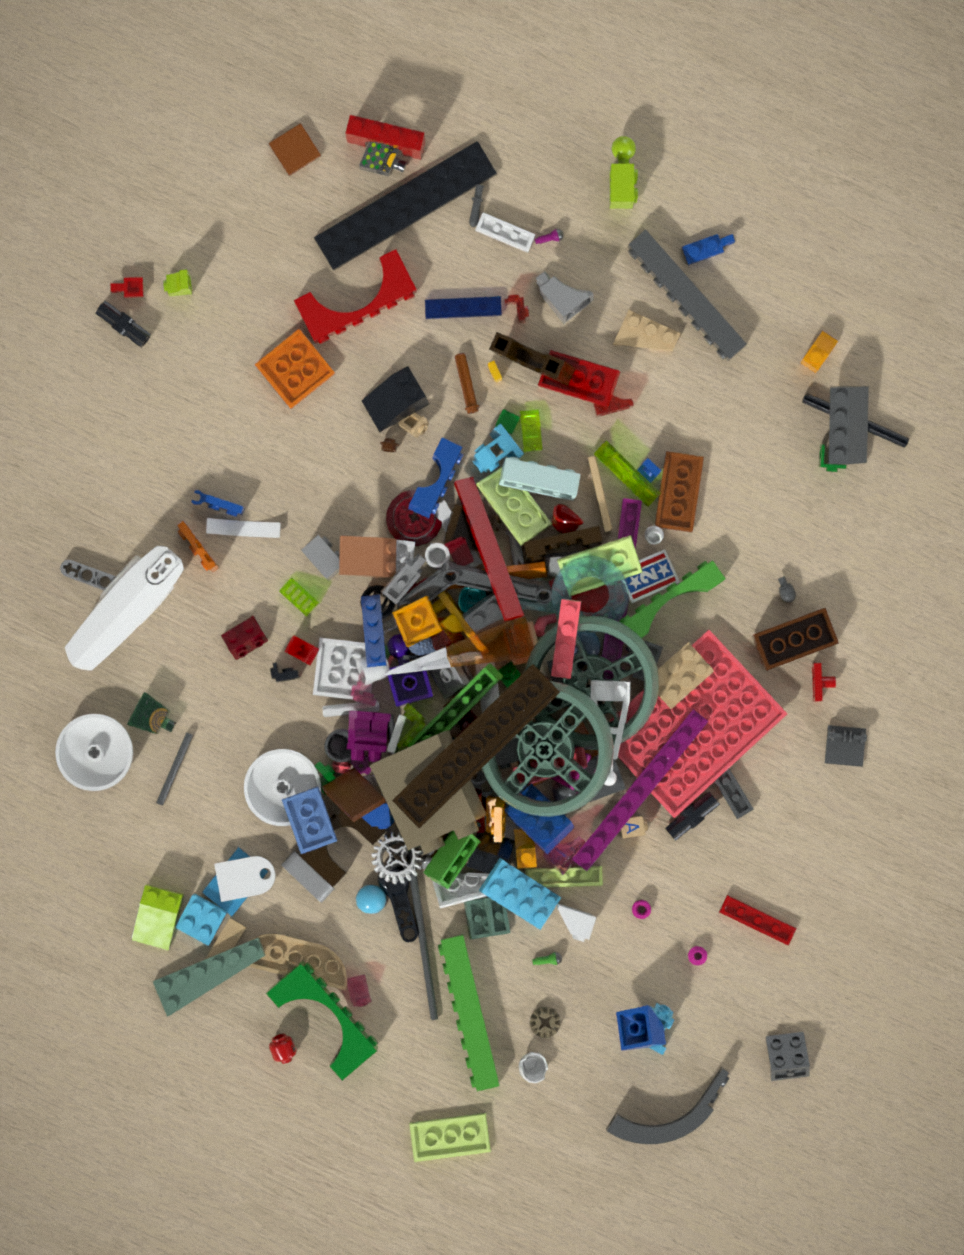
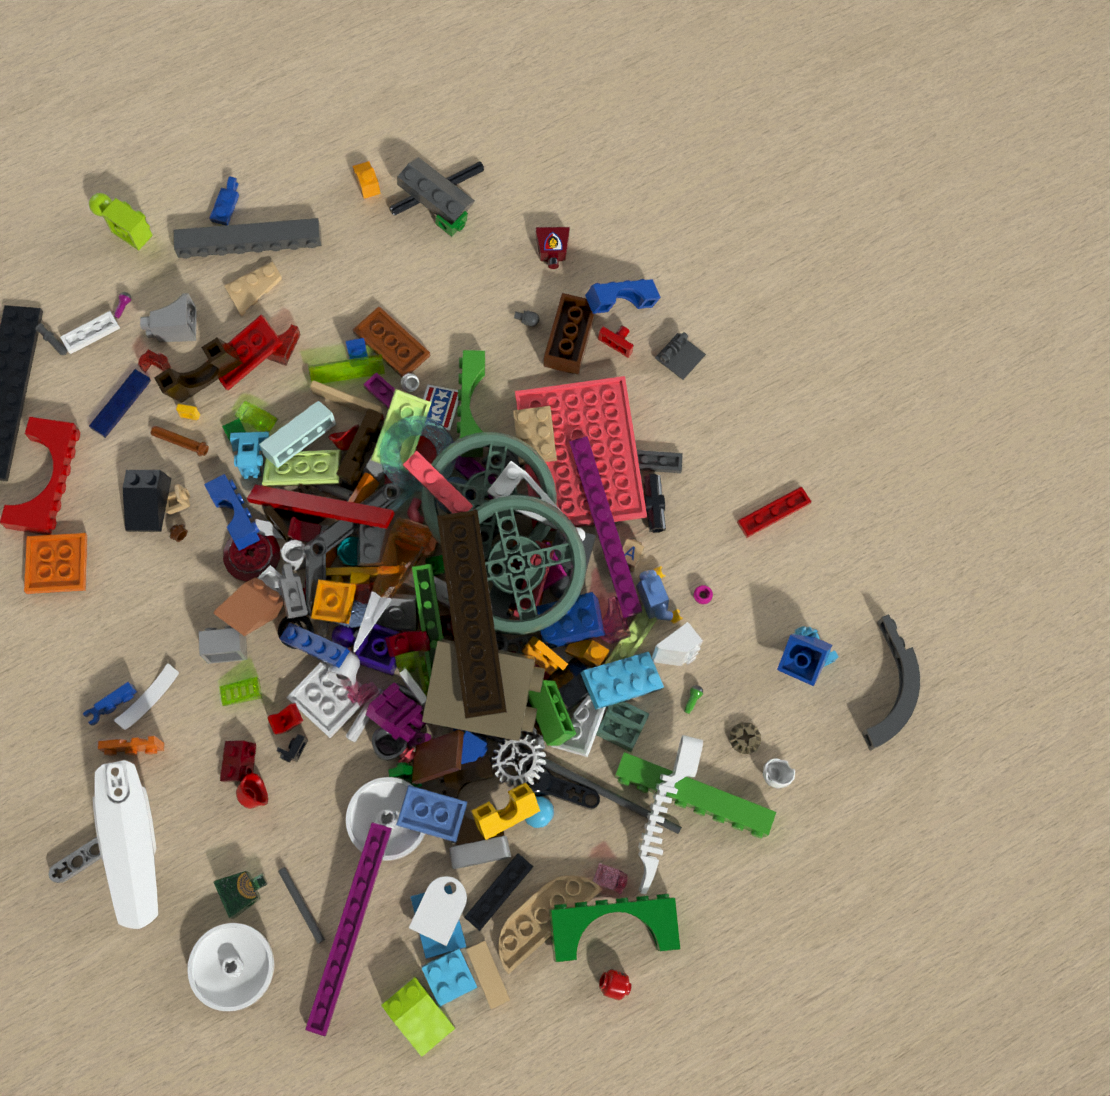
camera: 60 degrees left, 15 degrees down
(183, 819) = (348, 929): none -> magenta plate
(197, 979) = (499, 1023): sand green wing -> none
(229, 668) = (252, 791): none -> red helmet
(289, 912) = (498, 892): none -> black tile
(361, 885) = (520, 806): none -> yellow arch
(426, 701) = (407, 641): none -> dark red bracket
(450, 1137) = (792, 890): yellowish green tile -> none
(482, 991) = (685, 765): none -> white piece
(608, 871) = (655, 597): none -> medium blue torso
(692, 951) = (769, 581): dark pink plate -> none
(788, 1056) = (904, 561): dark grey bracket -> none
(871, 563) = (552, 244): none -> dark red torso
(877, 673) = (640, 293): none -> blue arch

